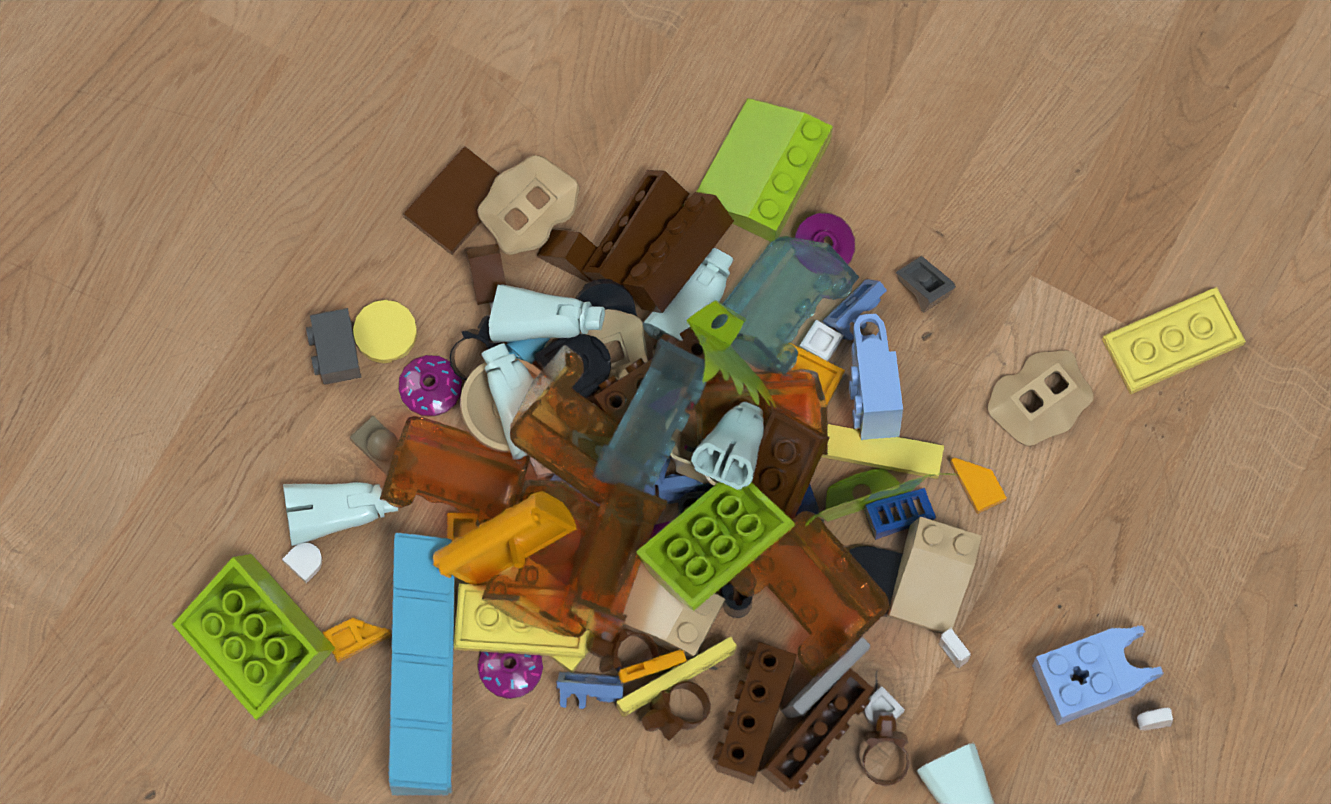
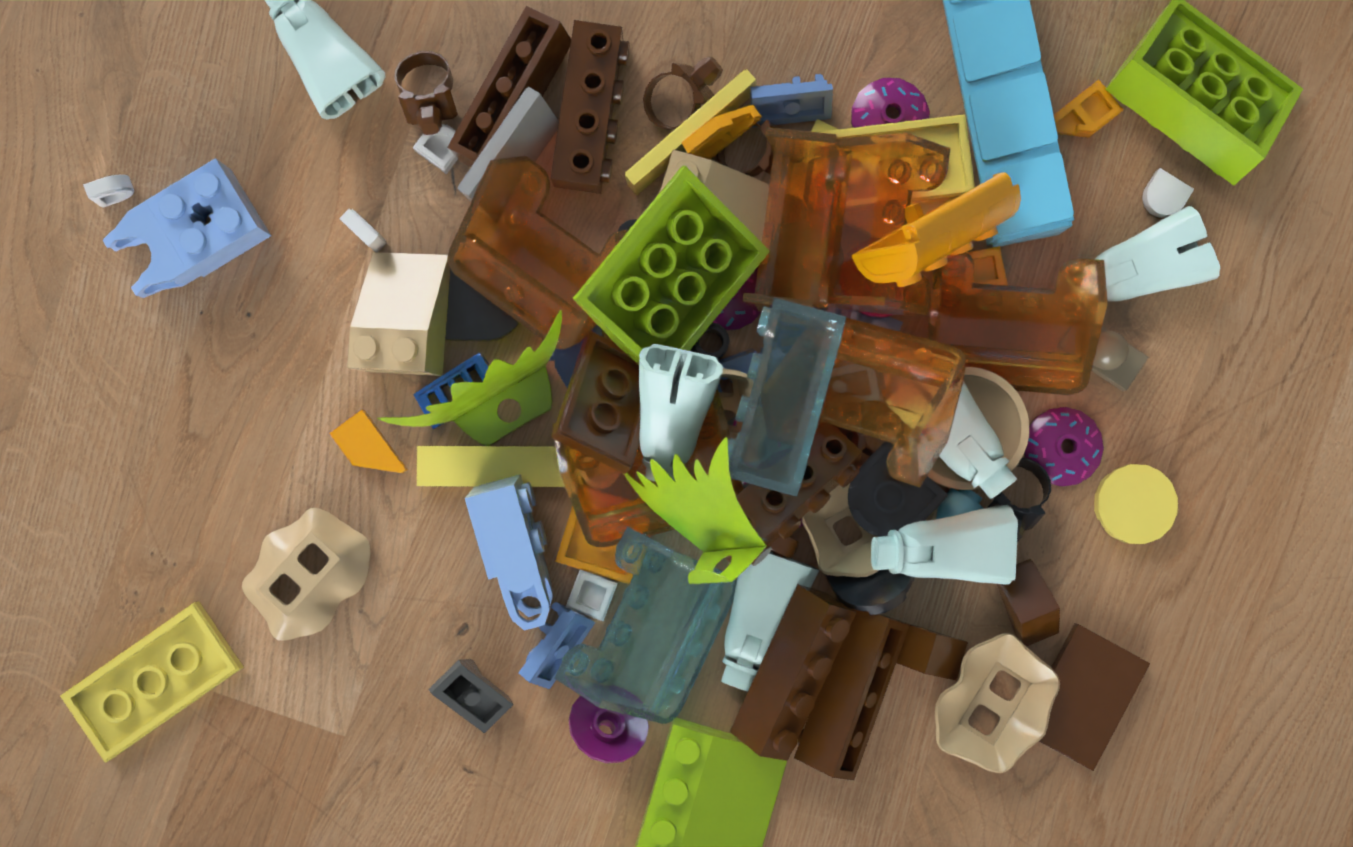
camera: 170 degrees right, 15 degrees up
(334, 345) = (1196, 468): dark grey brick -> none

